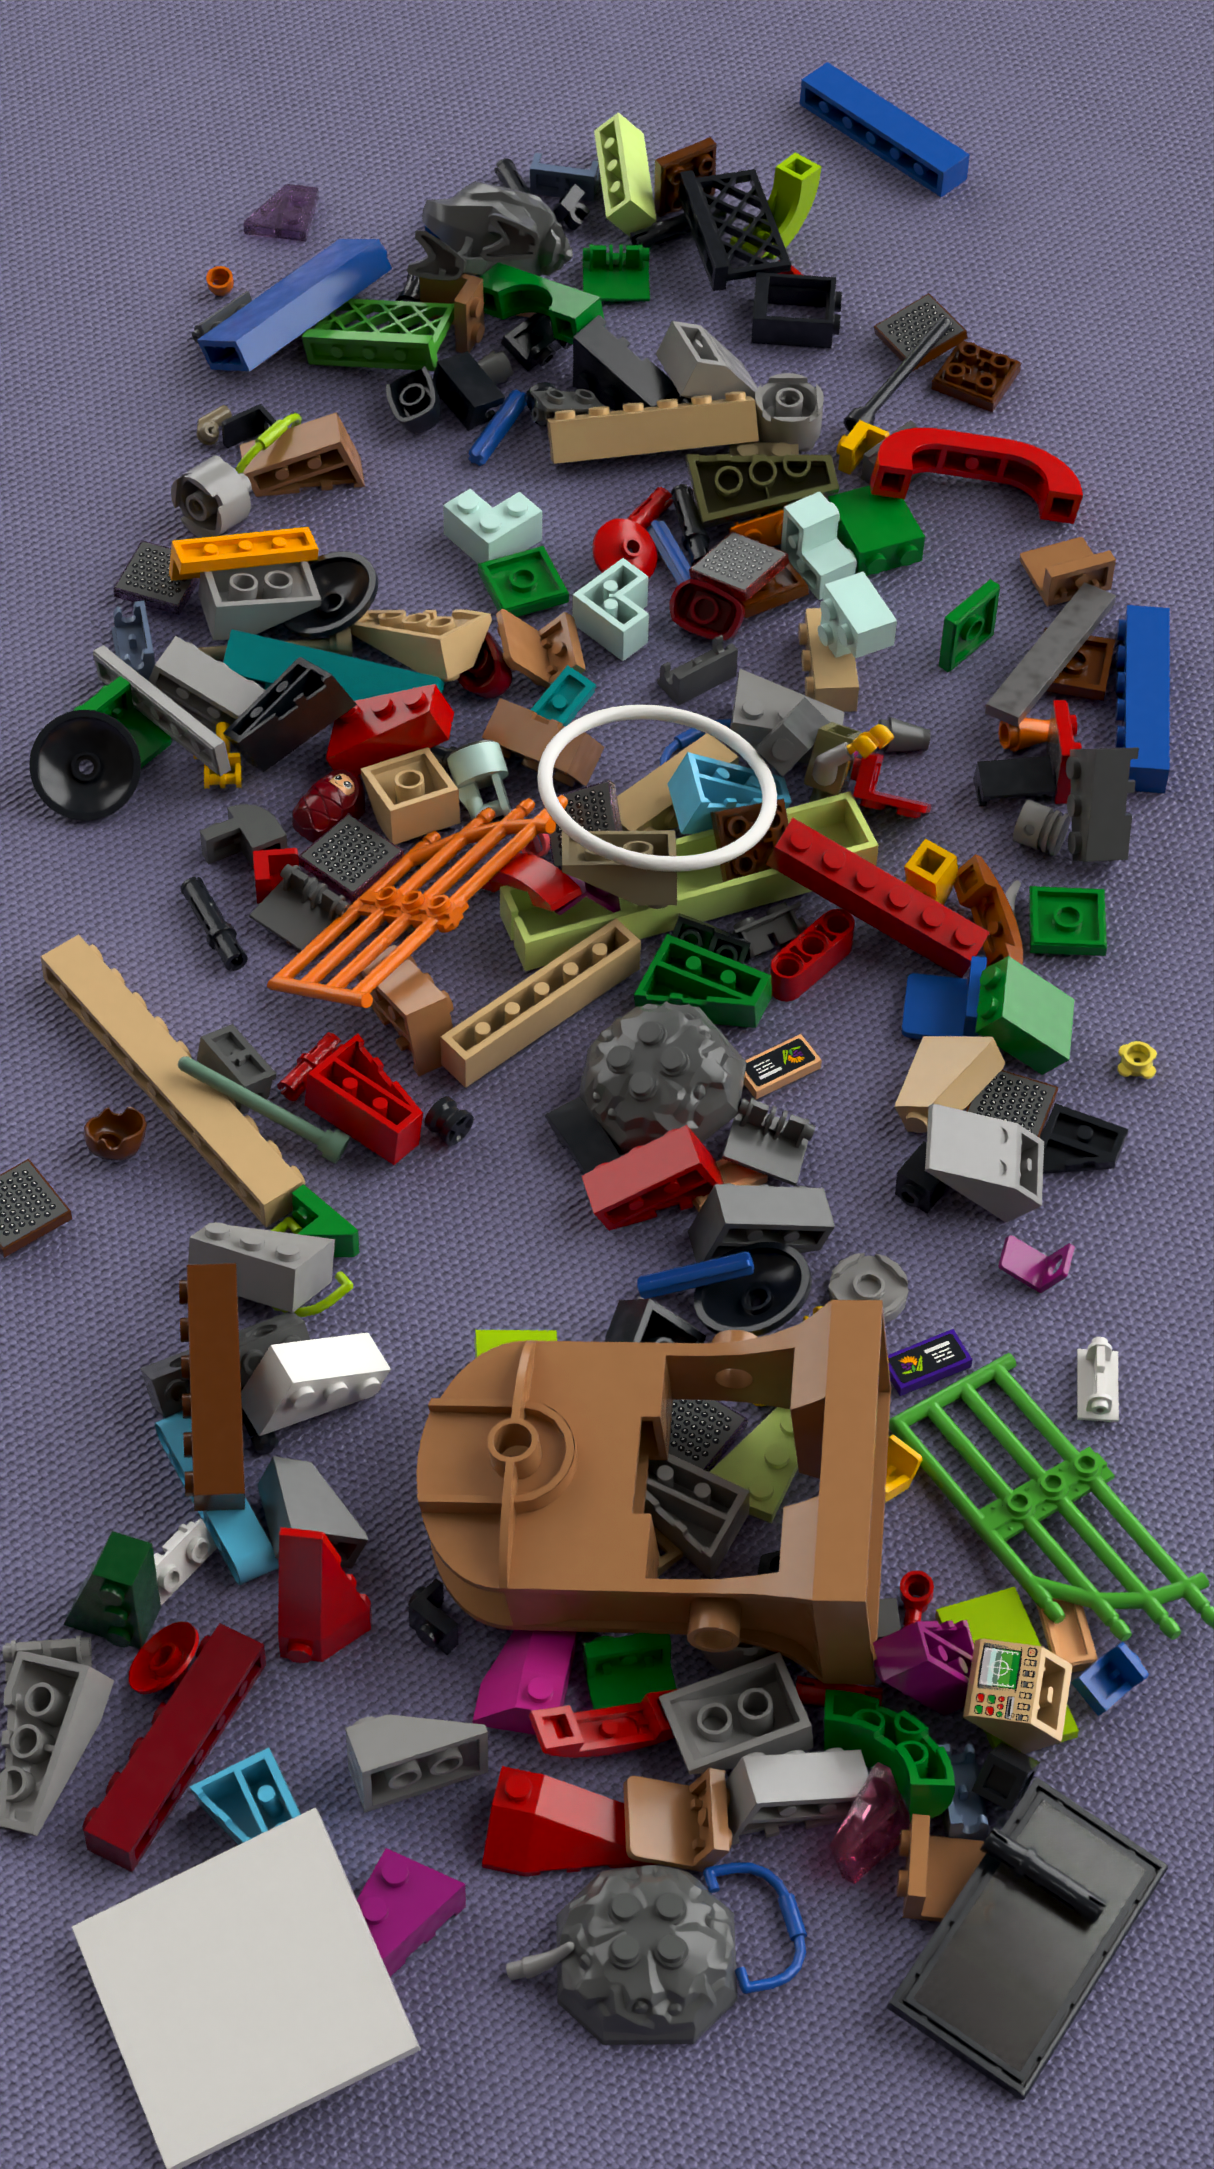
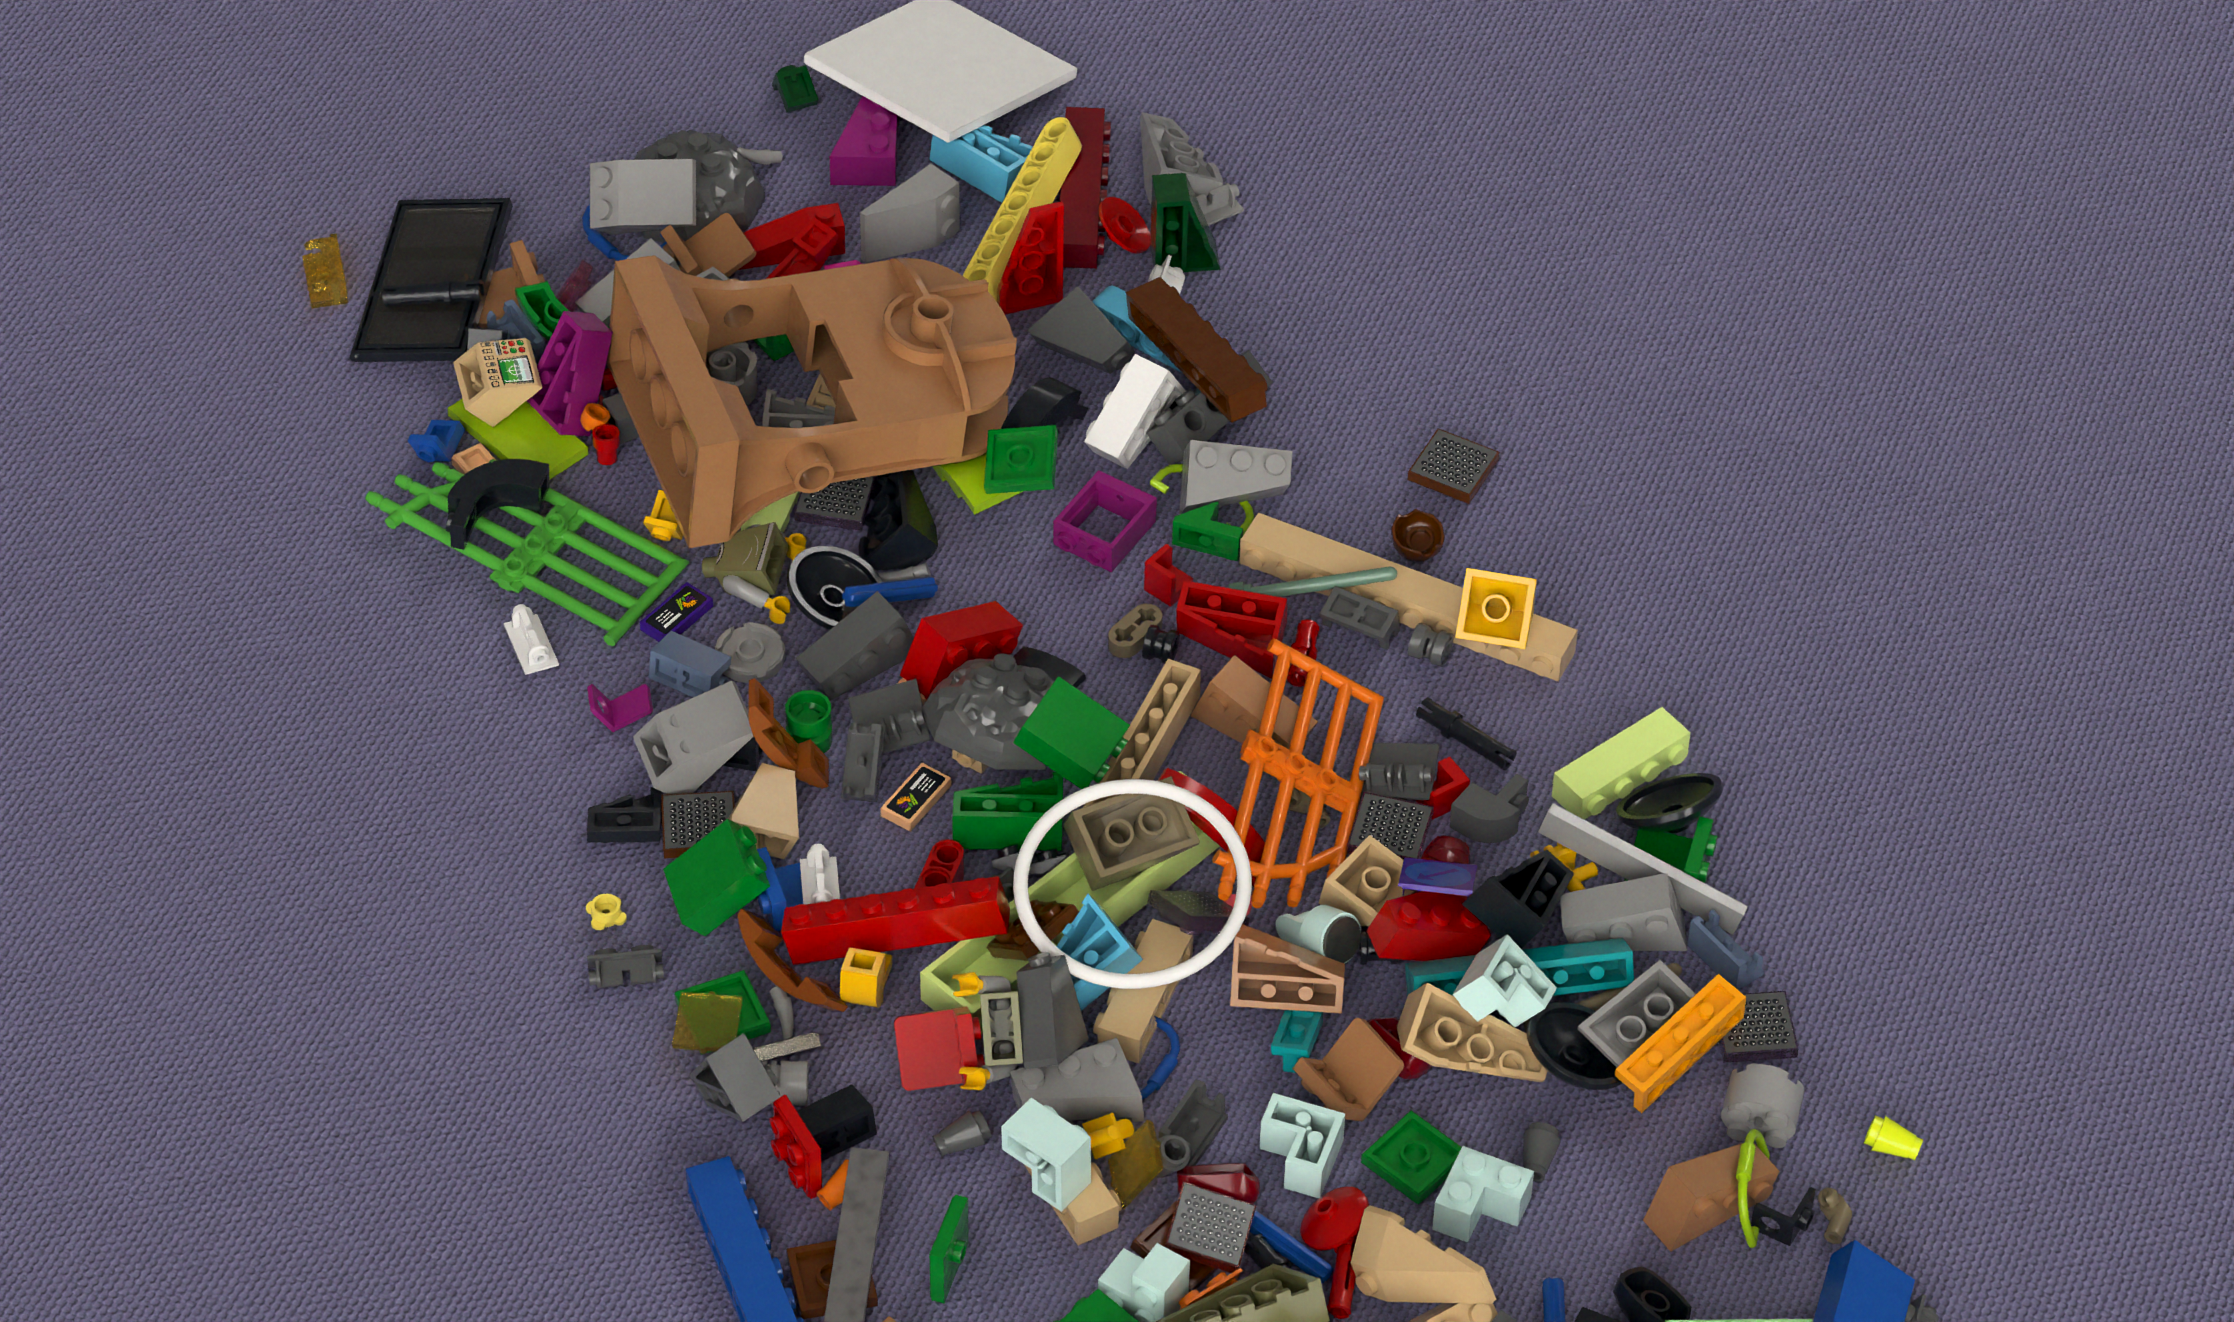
camera: 155 degrees right, 5 degrees down
(94, 835) = (1621, 764): none -> yellowish green brick
(111, 983) = (1496, 608): none -> yellow slope
(121, 457) = (1892, 1139): none -> neon yellow cone
(186, 1021) = (1430, 644): none -> dark grey wheel
(261, 1713) = (1033, 187): none -> light yellow beam
(361, 736) = (1437, 877): none -> piece
(376, 623) = (1506, 982): none -> light aqua brick
(398, 1195) = (1163, 578): none -> red panel
(401, 1413) = (1045, 405): none -> black arch
(414, 550) = (1539, 1148): none -> dark grey cone
(434, 1240) = (1104, 492): none -> magenta window
(437, 2069) = (795, 87): none -> dark green bracket
(461, 1157) = (1130, 628): none -> dark tan beam
(477, 1326) = (1021, 459): none -> green plate
(599, 470) = (1409, 1267): none -> tan wedge
(620, 979) = (1073, 734): none -> green brick
(732, 1904) = (642, 195): none -> light grey slope
(740, 631) = (1174, 1154): none -> dark grey cone
(770, 641) = (1137, 1164): none -> clear yellow piece
(797, 666) = (1108, 1134): none -> yellow arm
(818, 1091) = (863, 762): none -> dark grey hinge
(853, 1160) = (809, 718): none -> green wheel
(882, 1127) = (803, 758): none -> dark orange slope
(913, 1611) = (594, 416): none -> orange hinge
(923, 988) = (819, 876): none -> white hinge
(944, 1282) = (687, 665): none -> sand blue hinge
(1031, 847) = (788, 1047): none -> clear smoke tile
(1080, 1551) = (491, 486): none -> black arch
(1089, 902) = (706, 1021): none -> clear yellow piece
(1140, 999) = (638, 962): none -> dark grey hinge
(1159, 2004) = (325, 273): none -> clear yellow hinge

